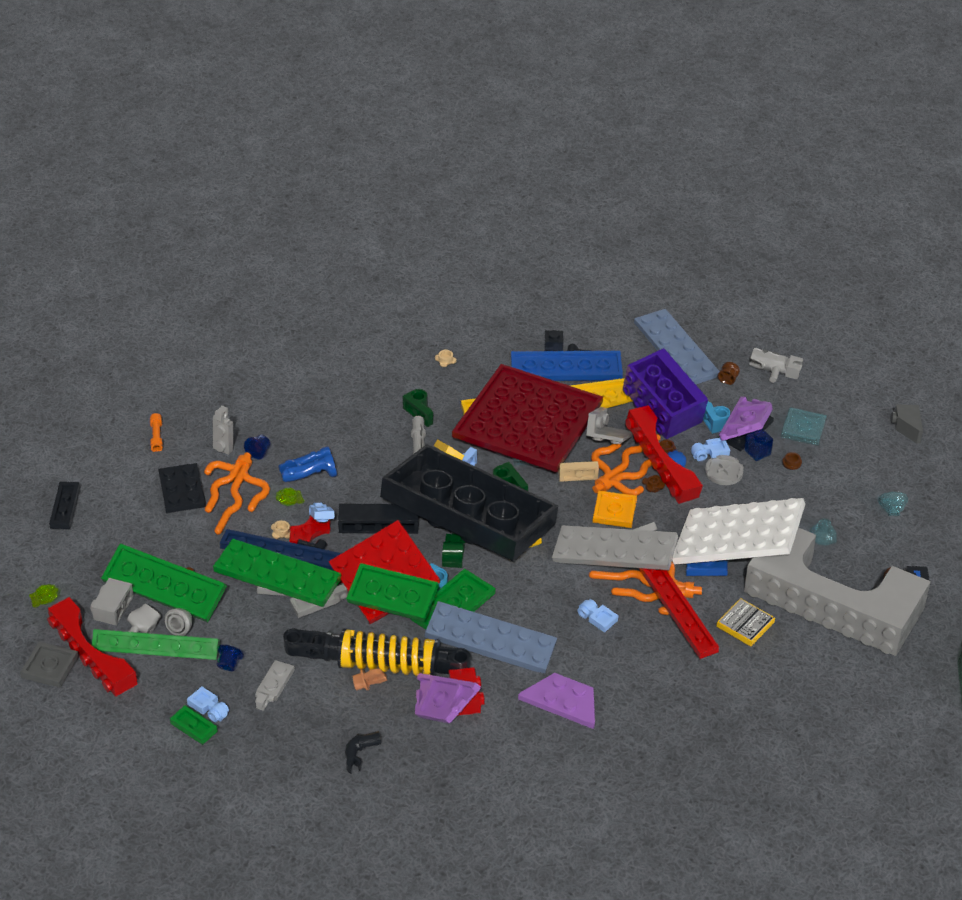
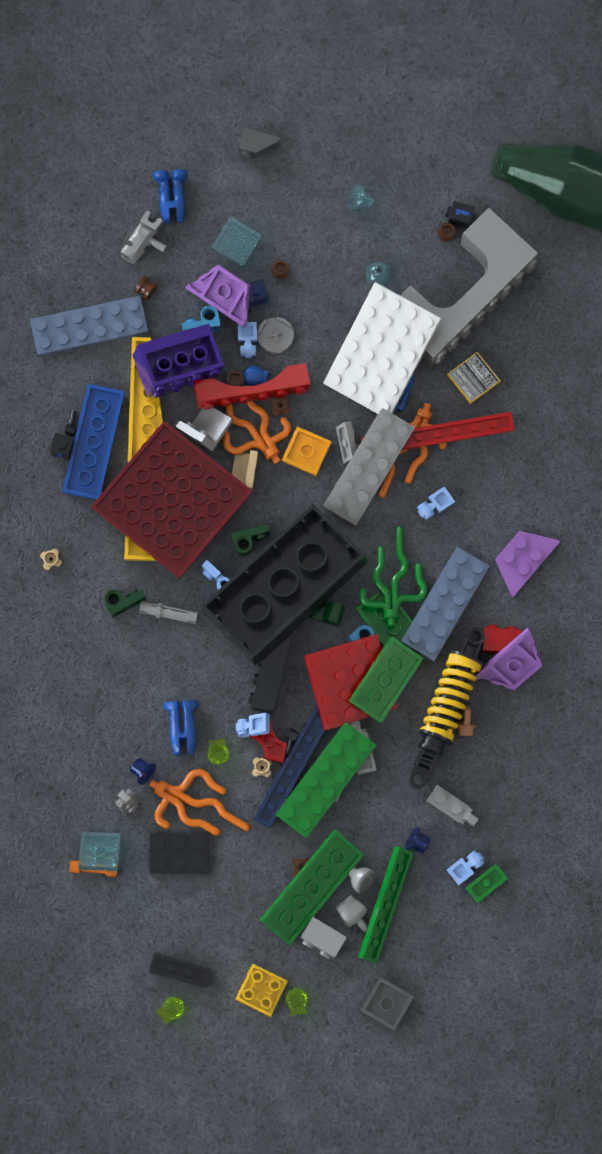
camera: 80 degrees left, 35 degrees up
(25, 506) = (171, 1009): none -> clear neon green animal
(53, 568) = (261, 990): none -> yellow tile
(113, 671) = (339, 980): red arch -> none
(172, 428) = (99, 851): none -> clear light blue plate
(356, 744) = (538, 746): black piece -> none
(447, 449) = (200, 587): yellow plate -> none
(481, 591) = (393, 601): none -> green plant
(828, 376) = (178, 202): none -> blue piece

